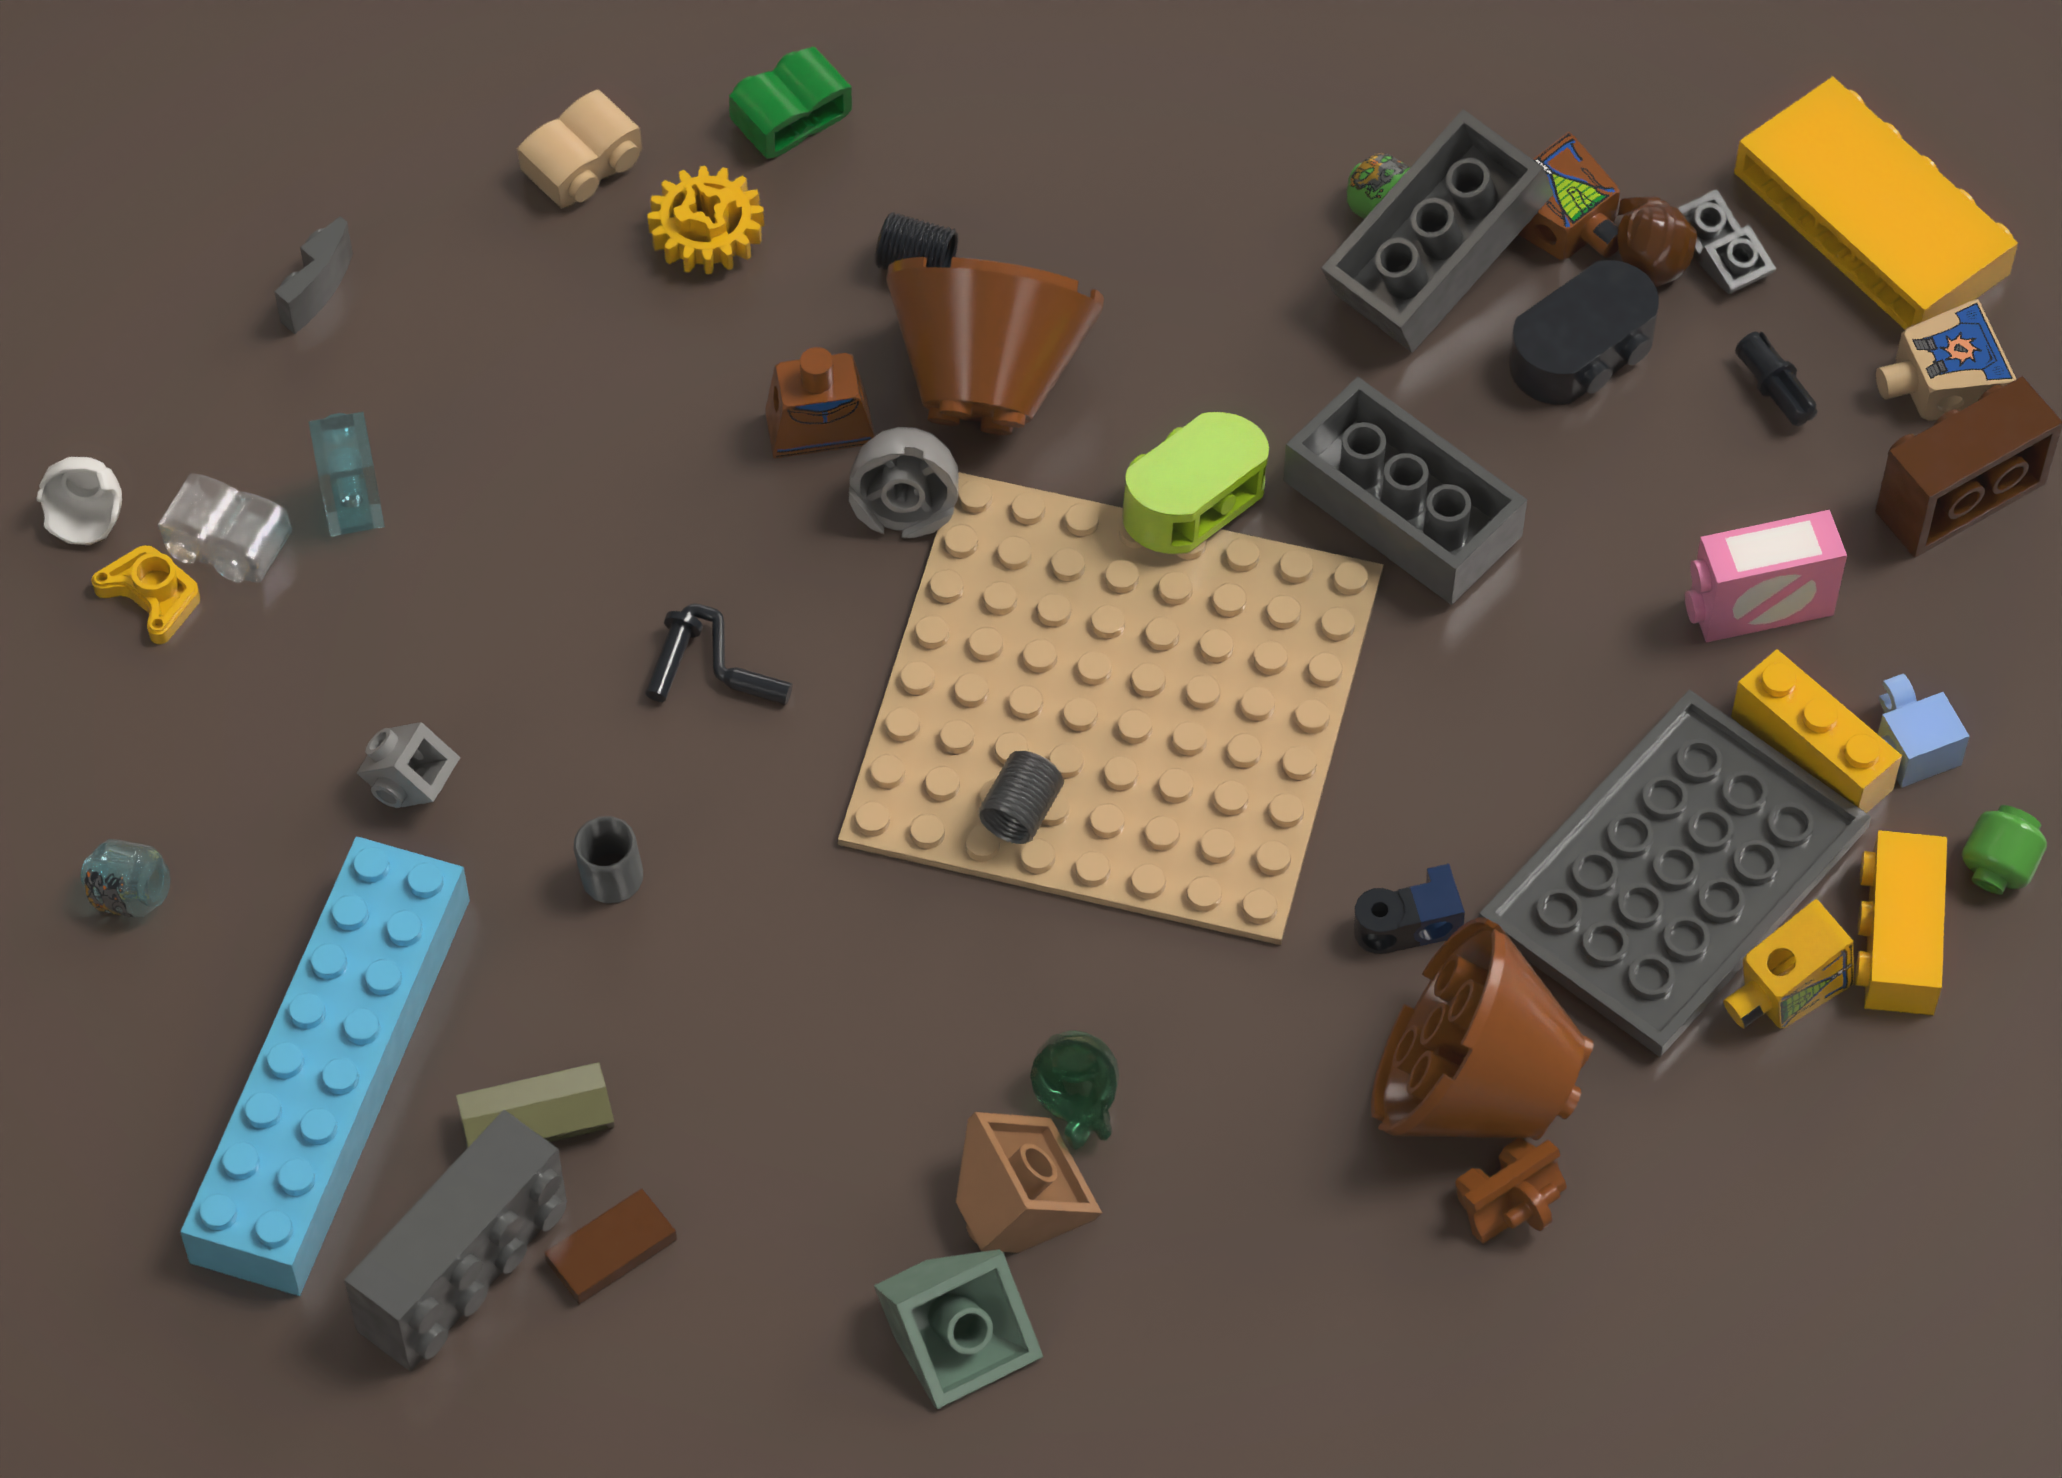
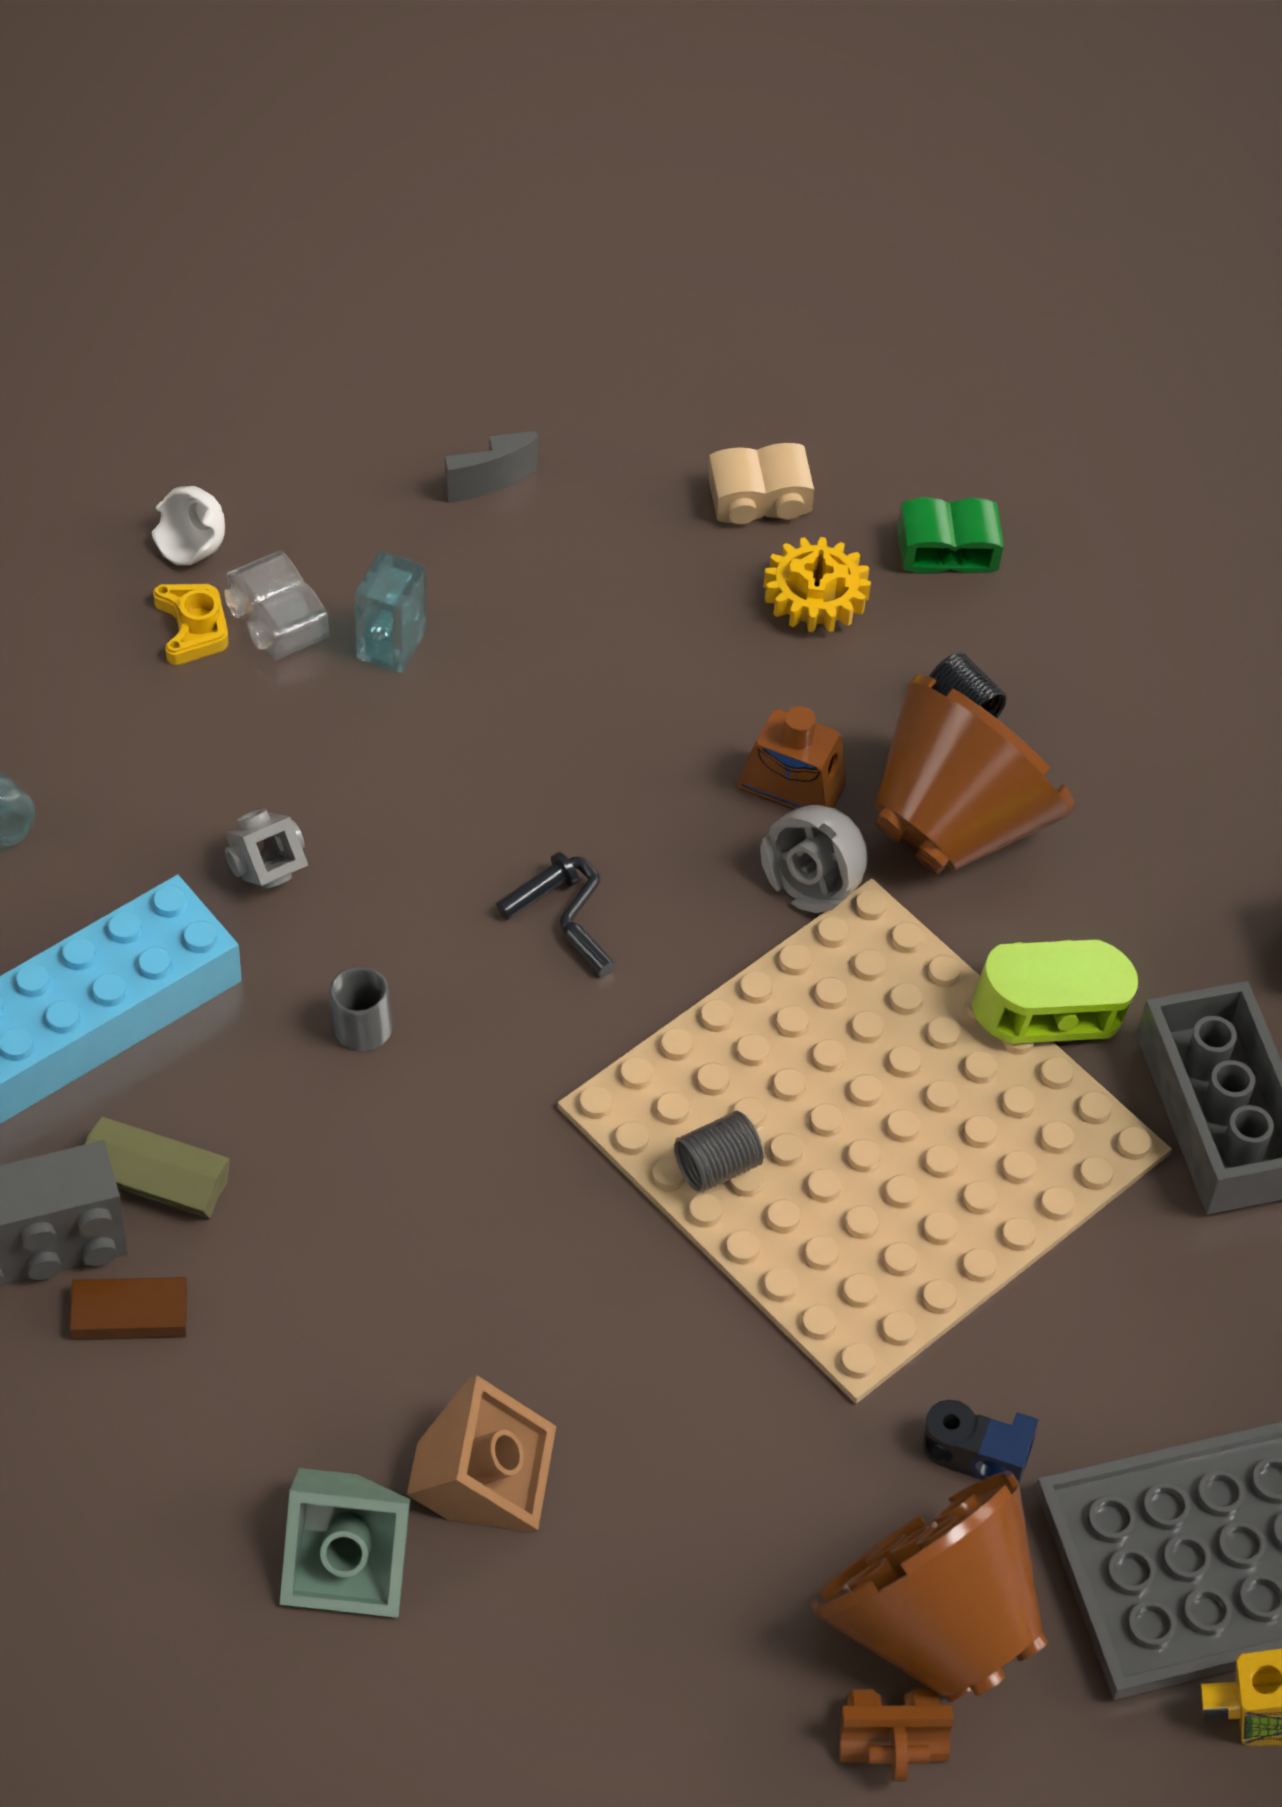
camera: 30 degrees right, 5 degrees down
(1077, 1083) = (593, 1408): clear green piece -> none

